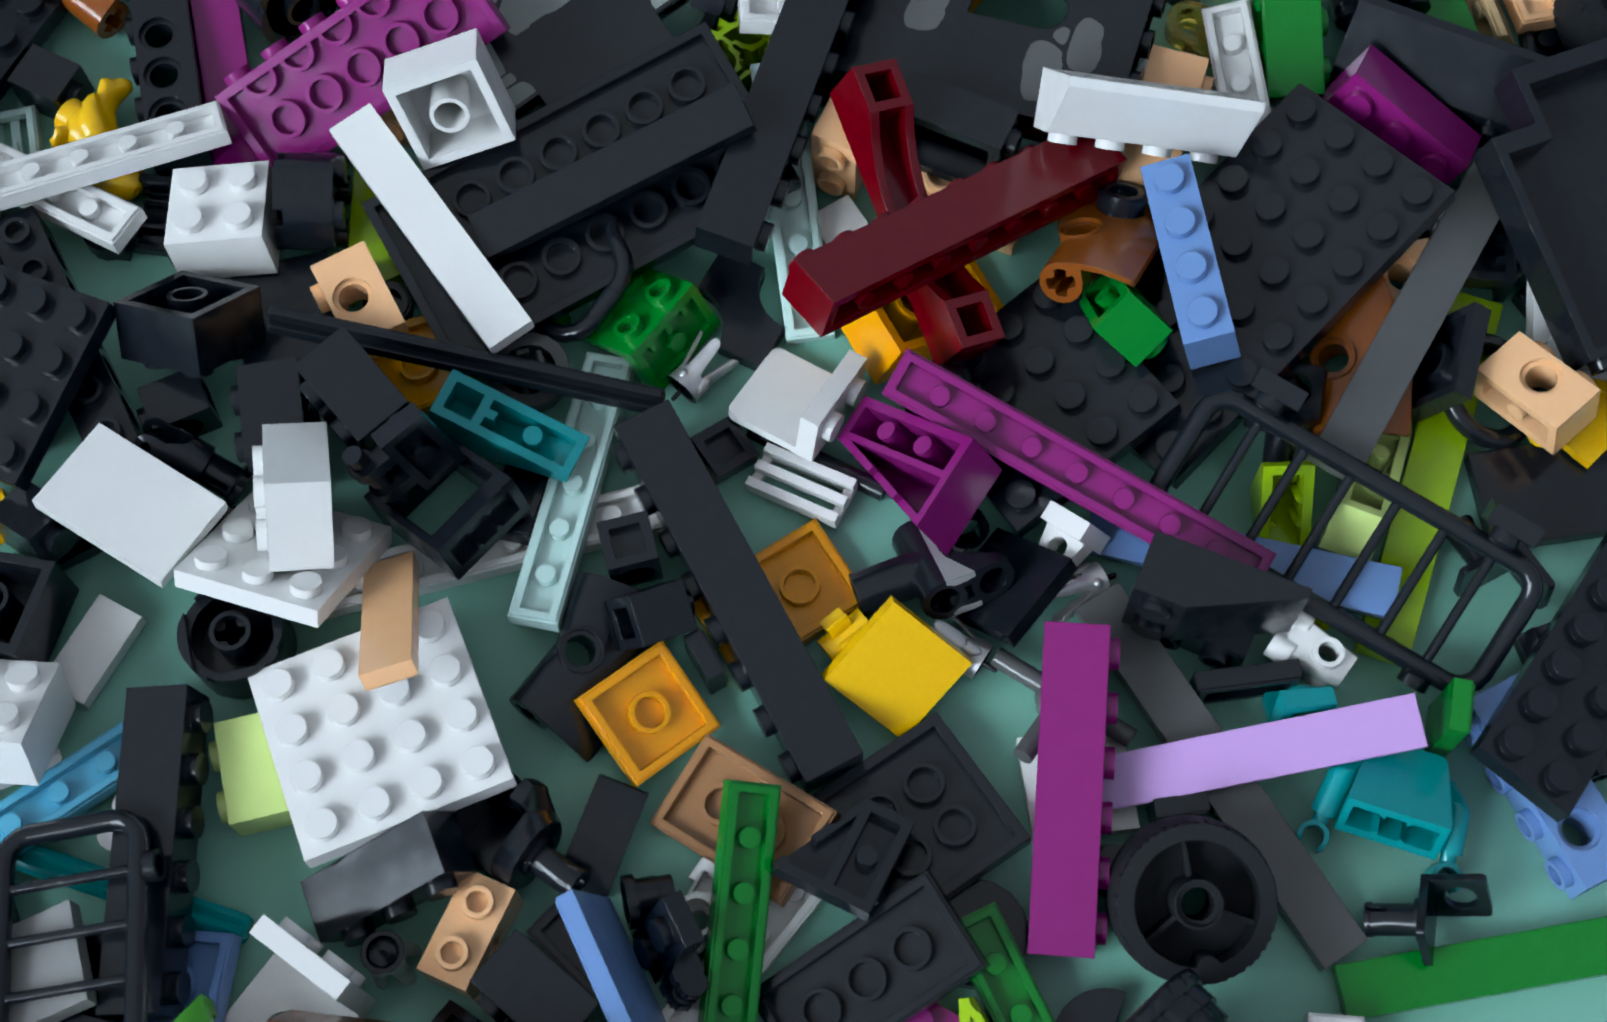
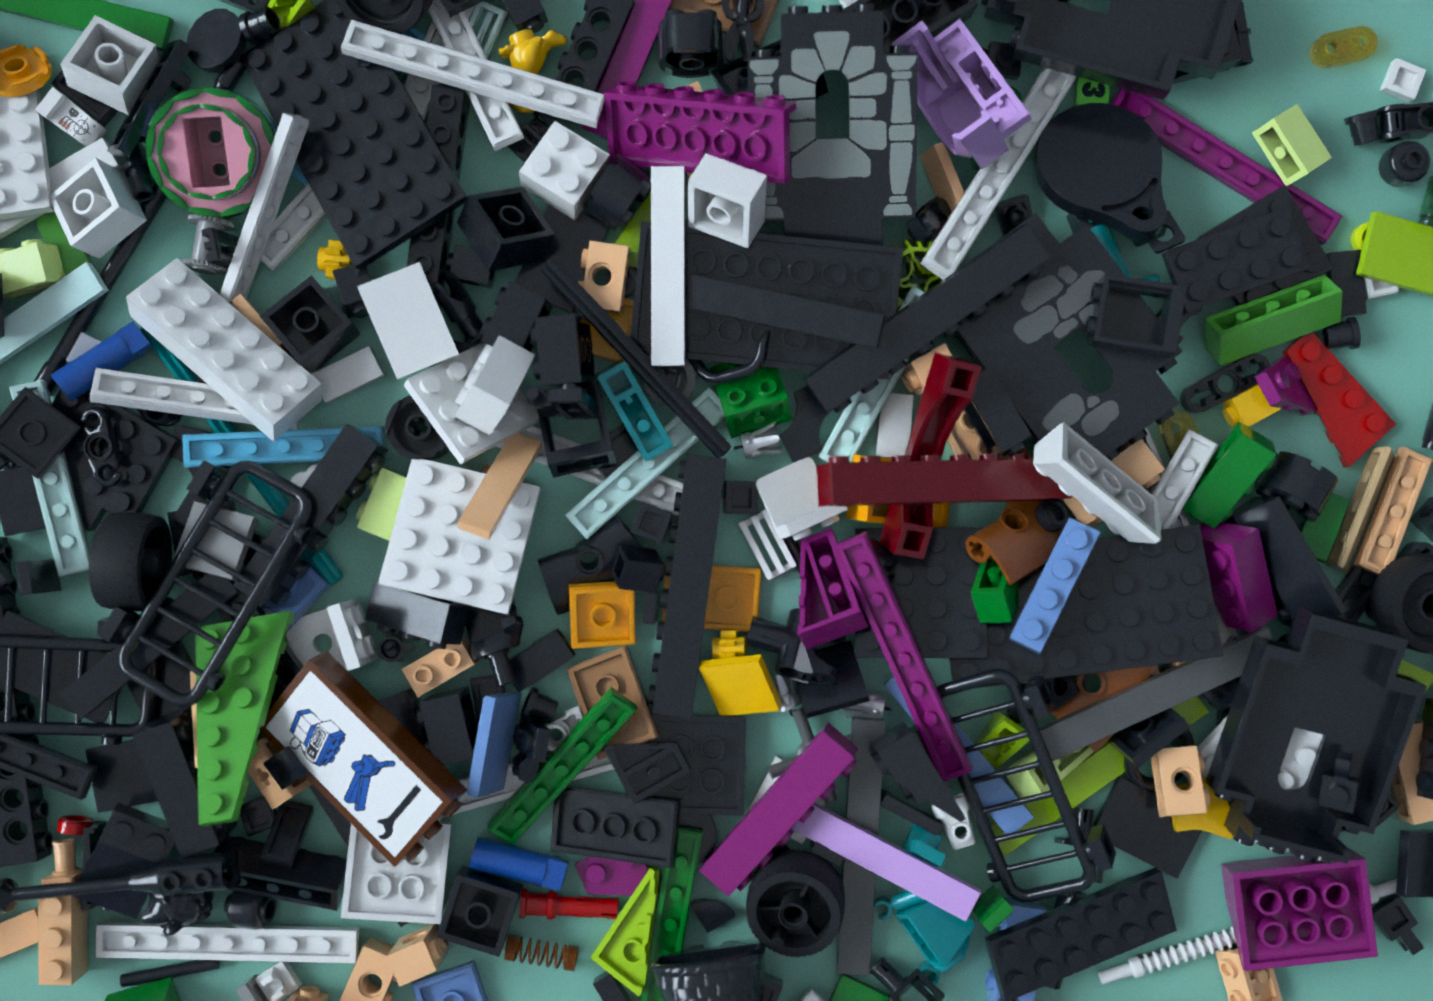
camera: 30 degrees right, 20 degrees up
(1068, 527) = (884, 681): white tile -> none

